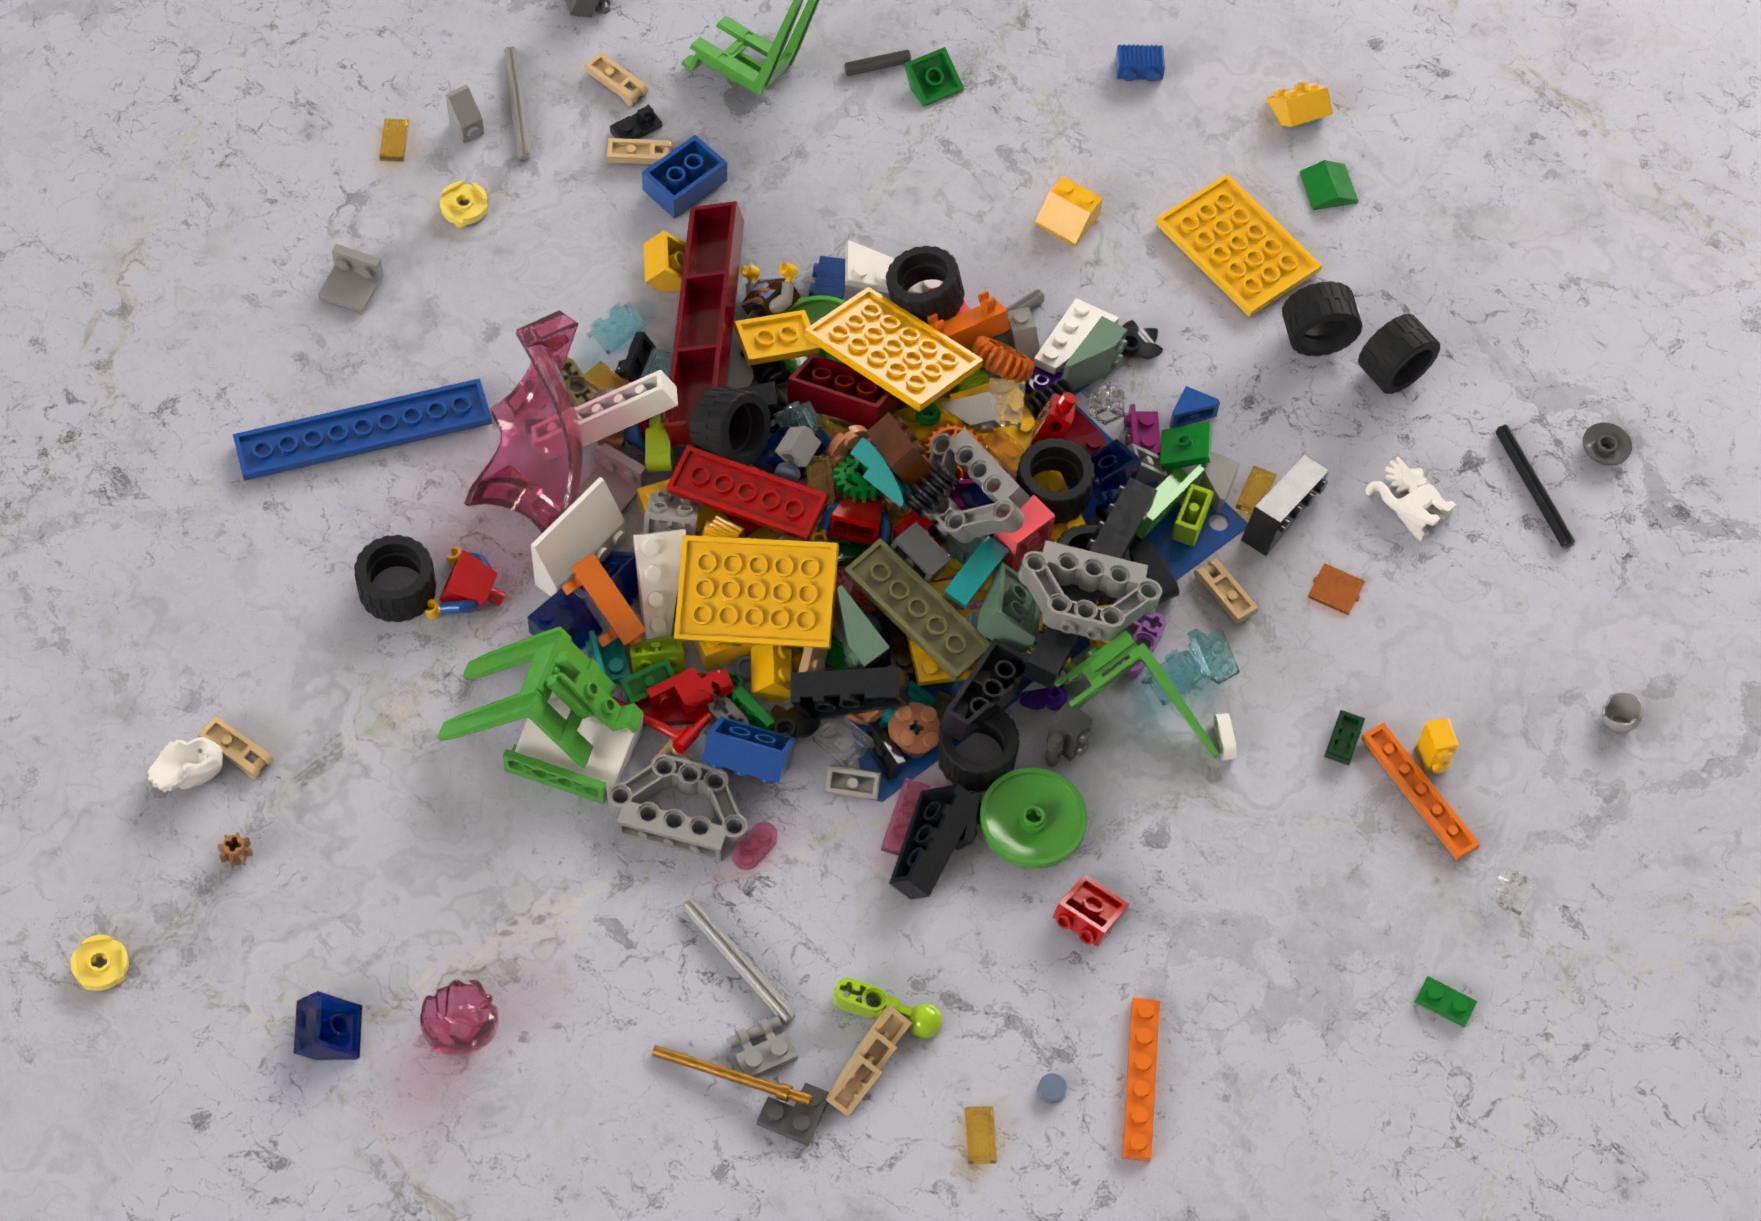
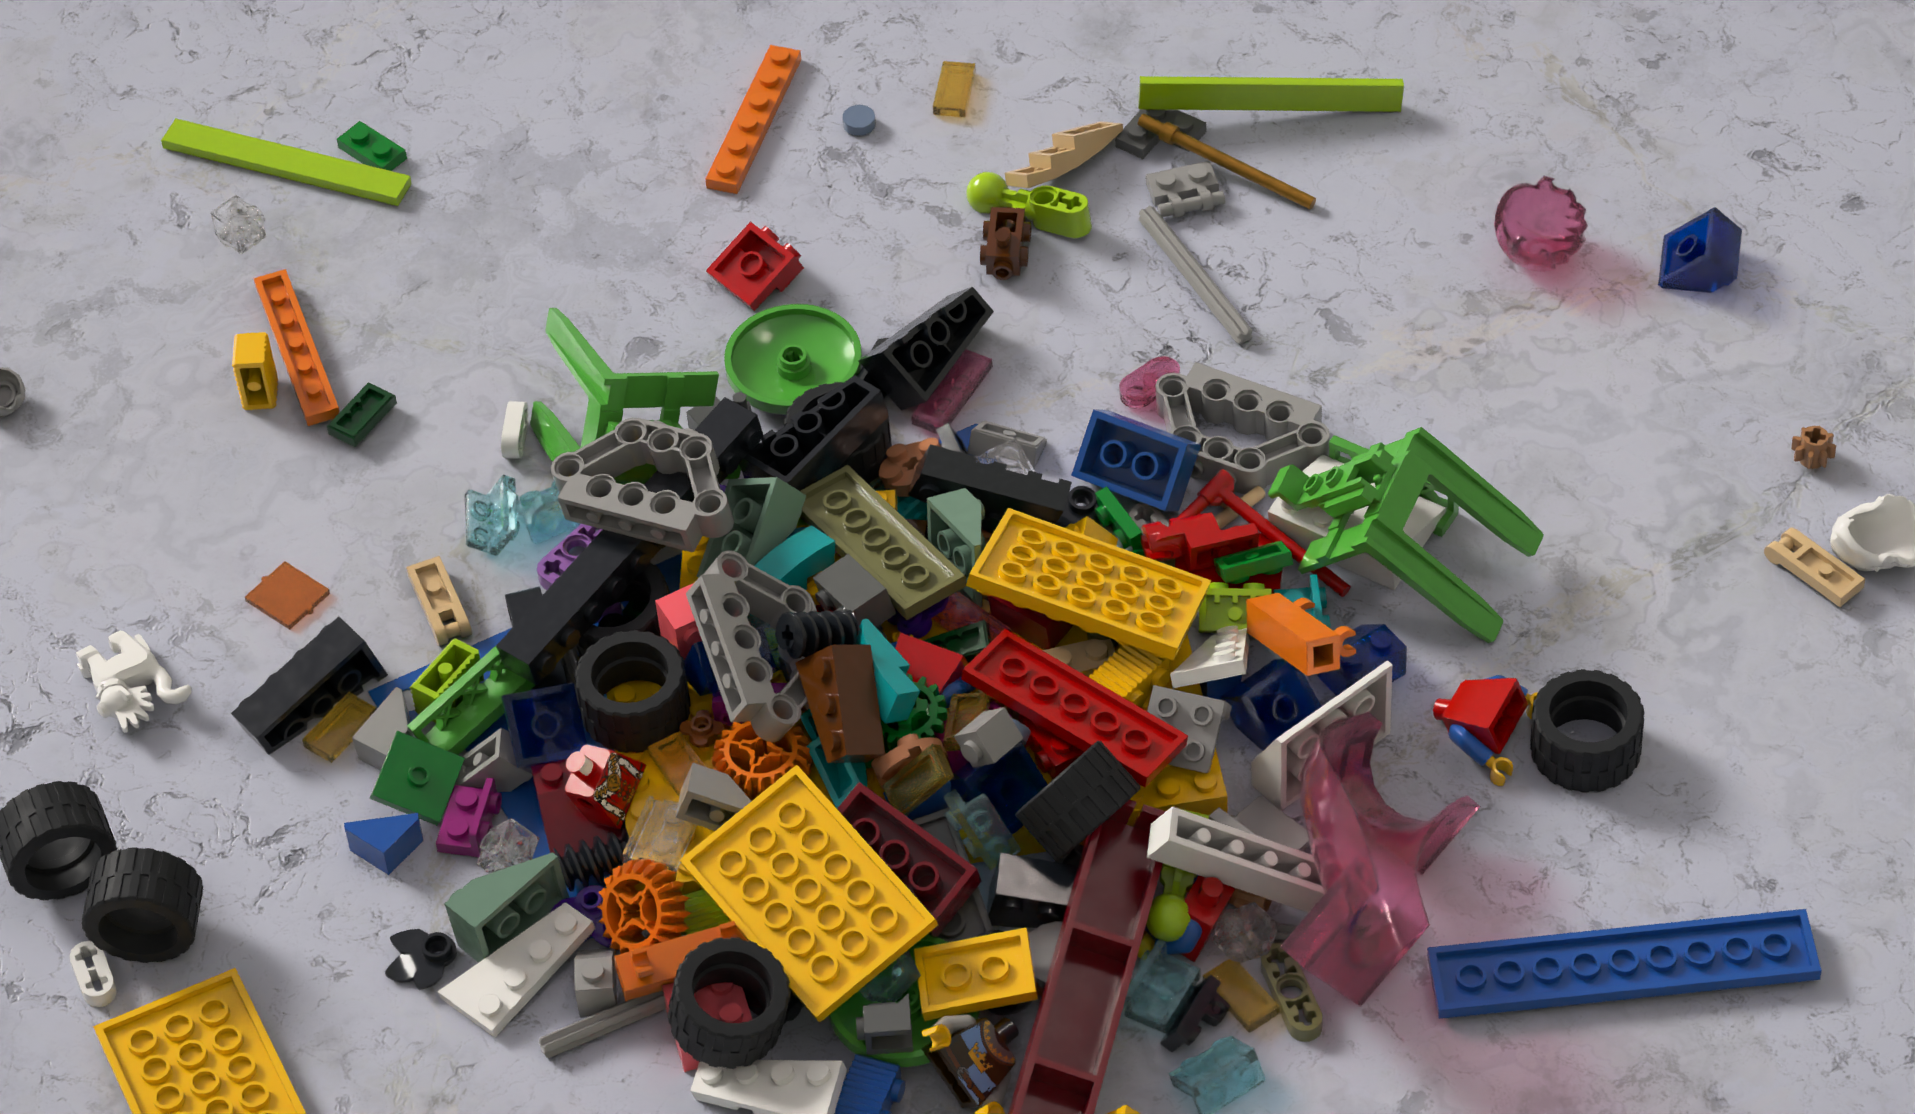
camera: 160 degrees left, 10 degrees down
(704, 1145) = (1270, 94): none -> lime tile
(824, 298) = (886, 1027): none -> dark grey window
(896, 954) = (1005, 242): none -> reddish brown brick
(1510, 977) = (286, 162): none -> lime tile

